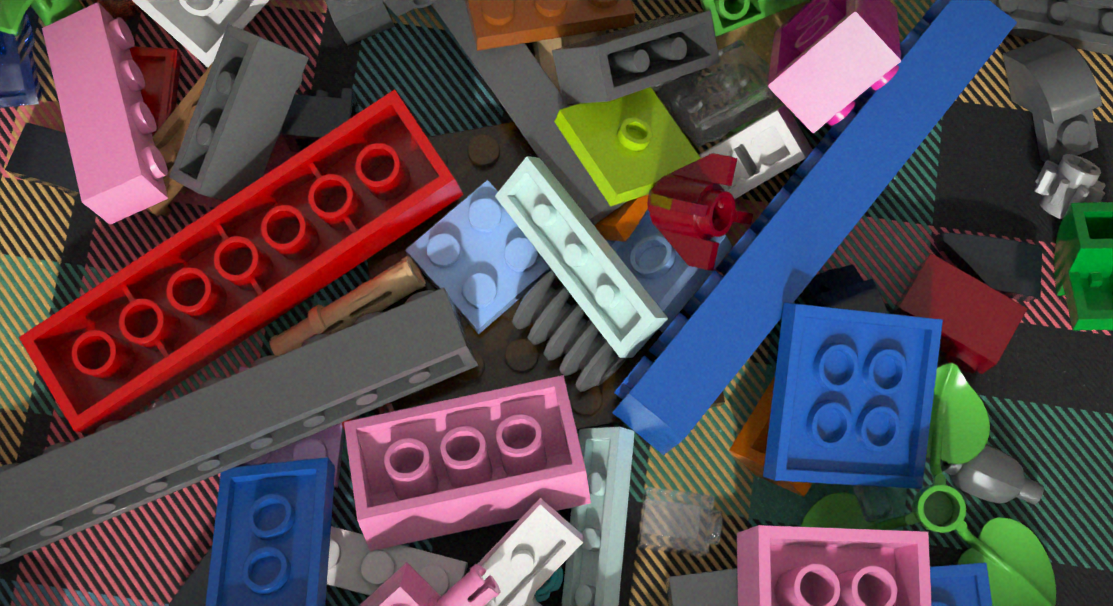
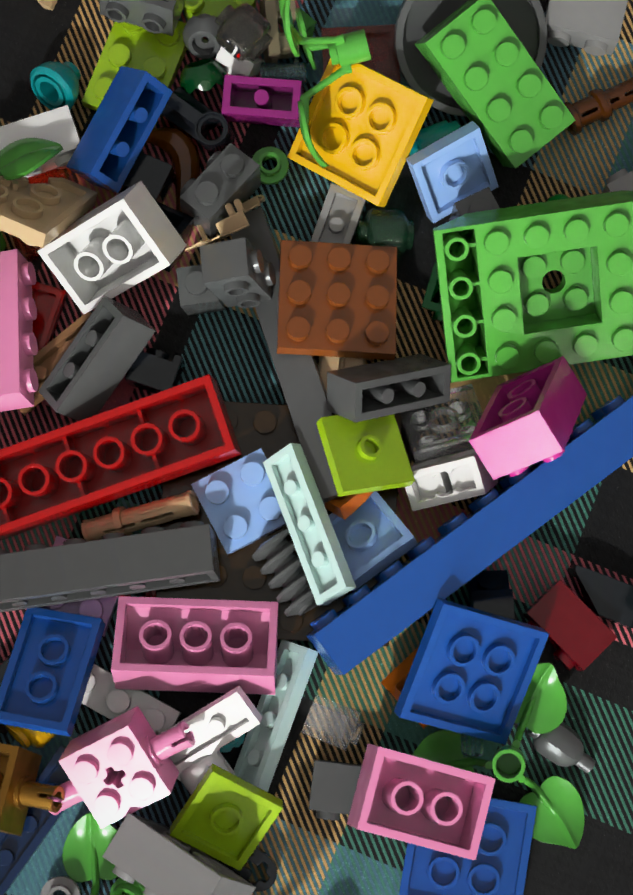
camera: 15 degrees right, 5 degrees up
(694, 207) = (396, 513): dark red brick -> none

